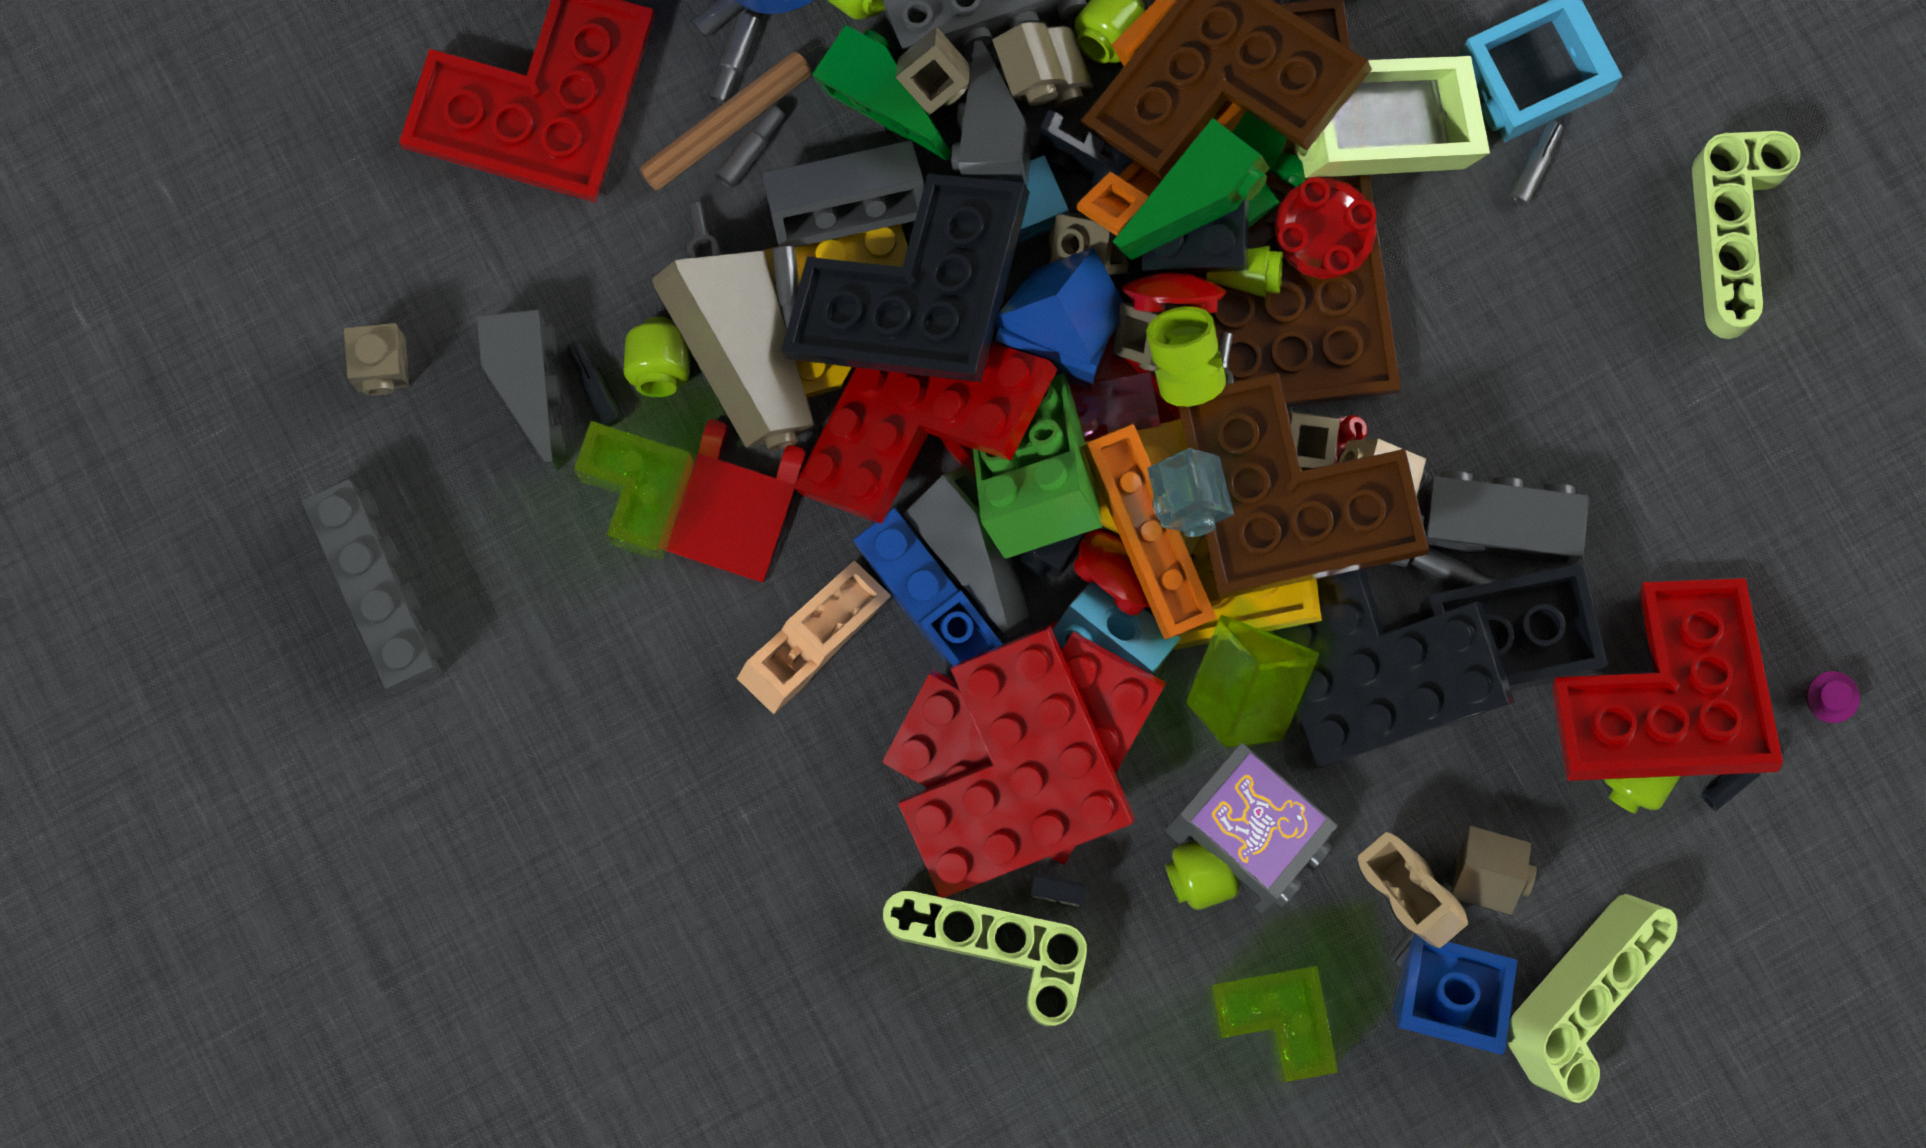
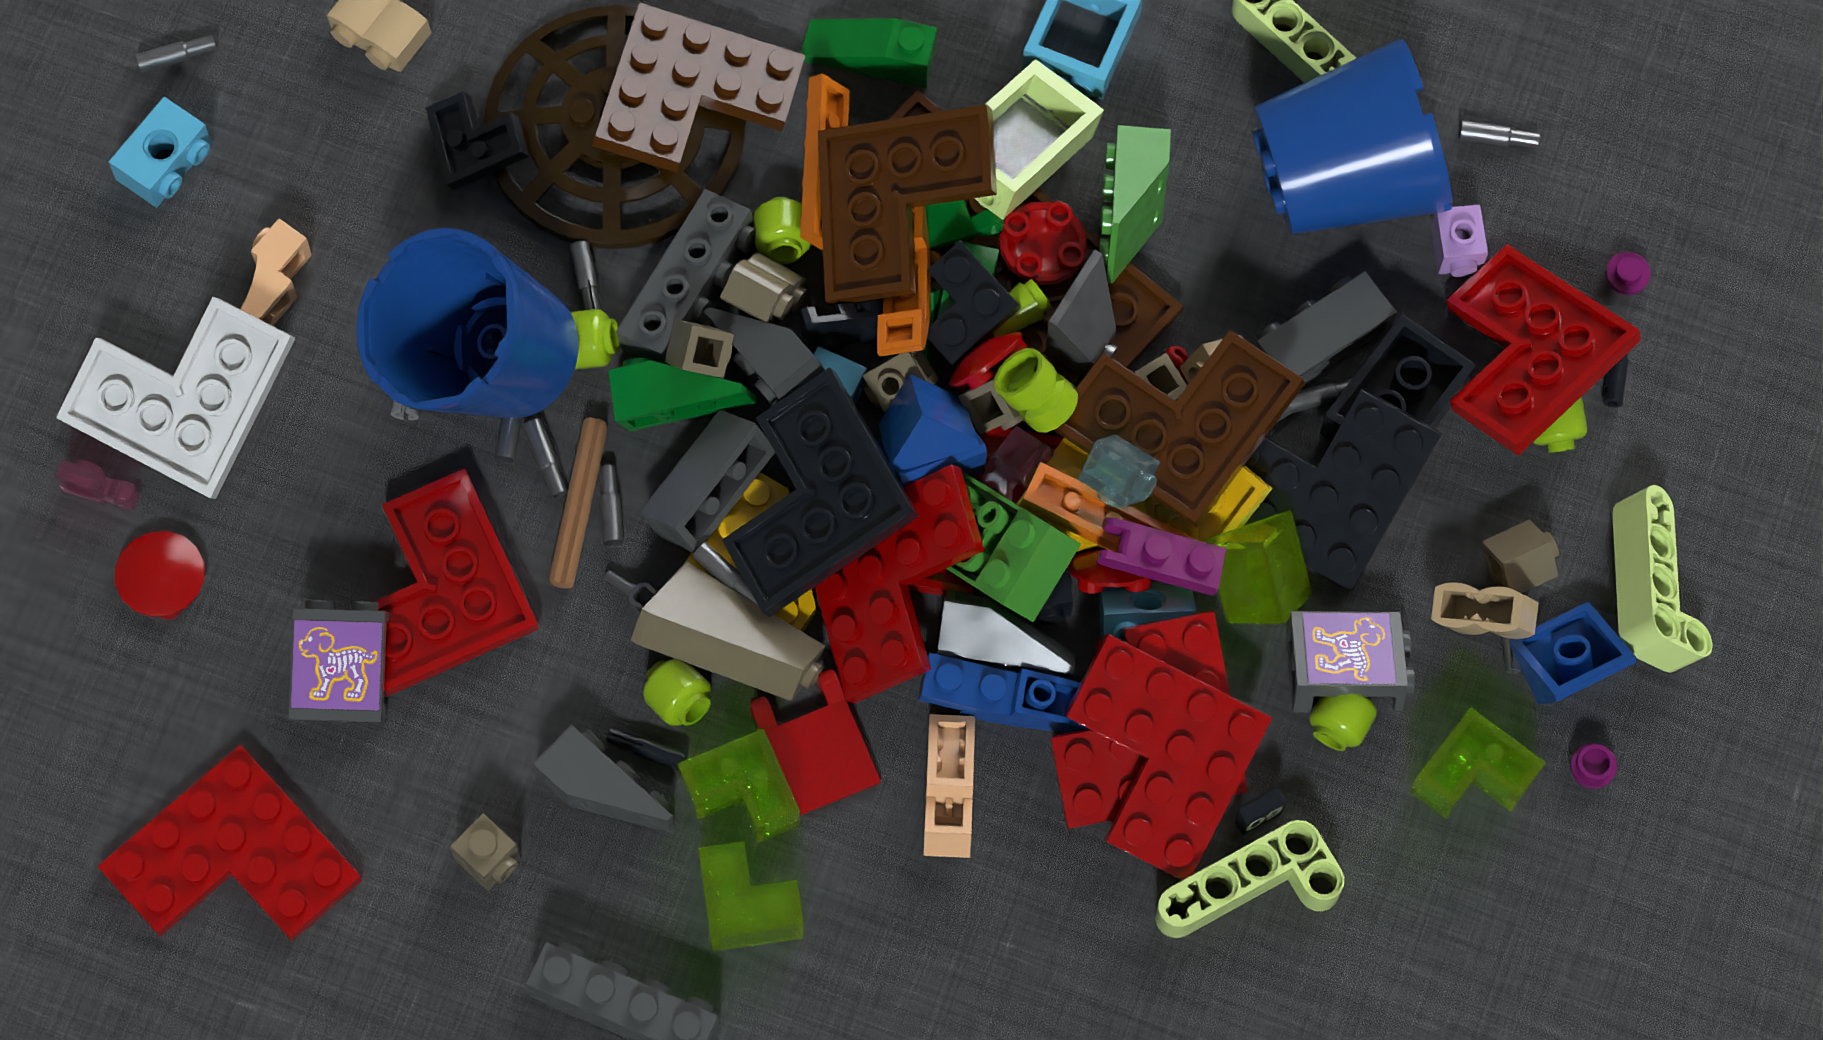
camera: 40 degrees left, 10 degrees down
(195, 155) = (236, 827): none -> red plate
(394, 89) = (338, 662): none -> panel
(538, 585) = (746, 913): none -> clear neon green brick
(1165, 601) = (1164, 556): none -> magenta hinge
(1201, 187) = (949, 273): green slope -> none
(1289, 328) = (1084, 320): none -> flat silver slope
(1388, 1106) = (1593, 766): none -> magenta plate
(1439, 251) = (1134, 193): none -> bright green slope
(1535, 165) = (1135, 95): flat silver piece -> none
(1675, 372) = (1353, 146): none -> blue cone
(1704, 538) = (1459, 240): none -> lavender brick
(1831, 471) = (1497, 135): none -> flat silver pin

